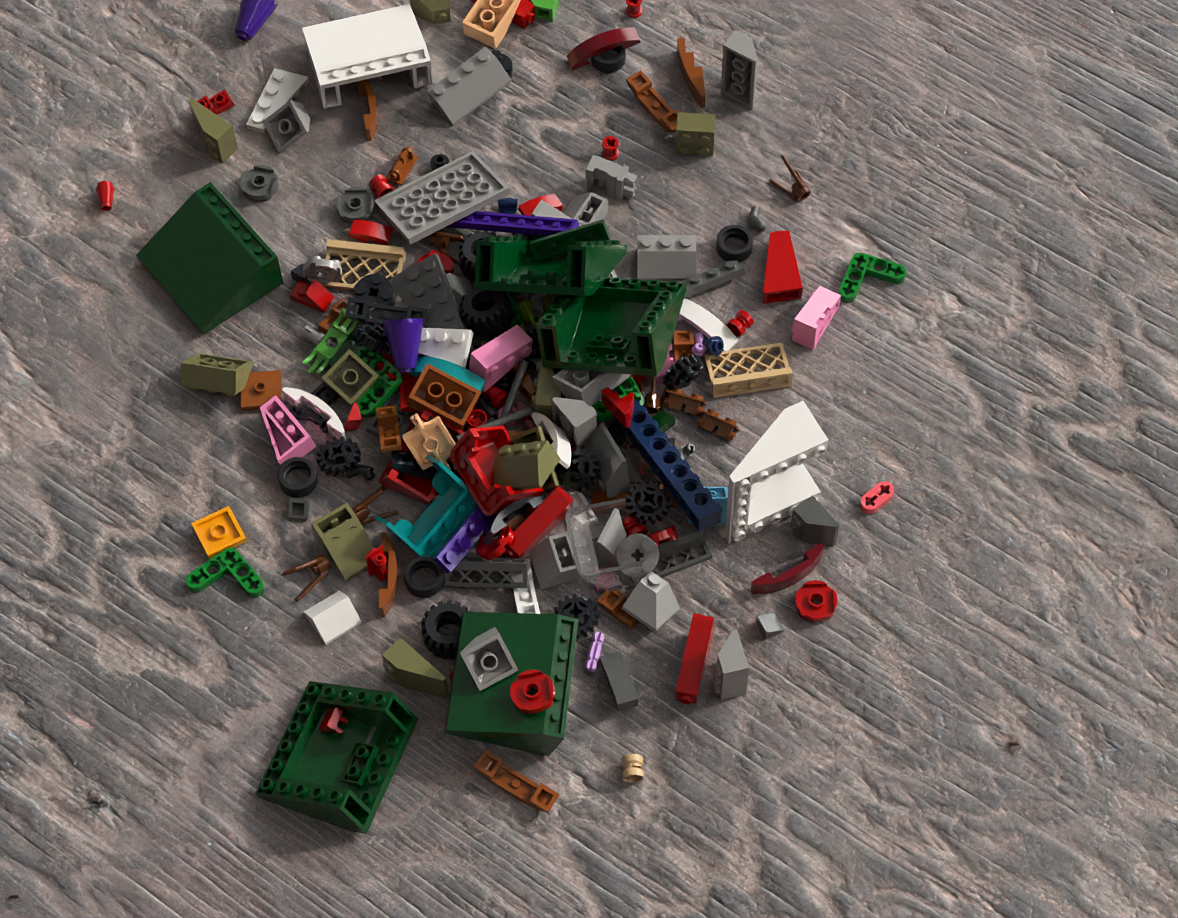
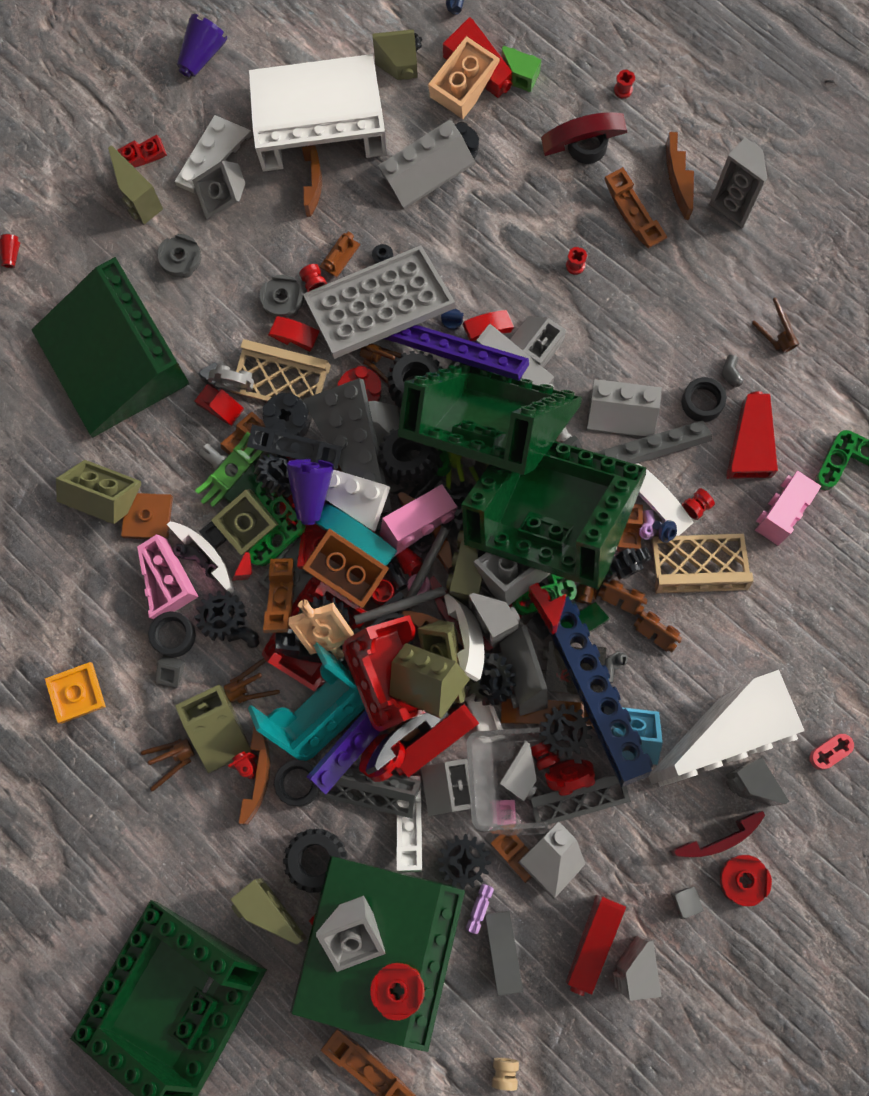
camera: 10 degrees right, 15 degrees up
(226, 566) = (77, 737): green beam -> none
(331, 720) = (166, 960): red tile -> none
(333, 617) = (187, 818): white slope -> none
(557, 243) = (516, 385): dark green plate -> none
(612, 176) = (576, 300): light grey hips -> none
(646, 546) = (556, 794): light grey plate -> none
(695, 133) = (676, 256): olive brick -> none

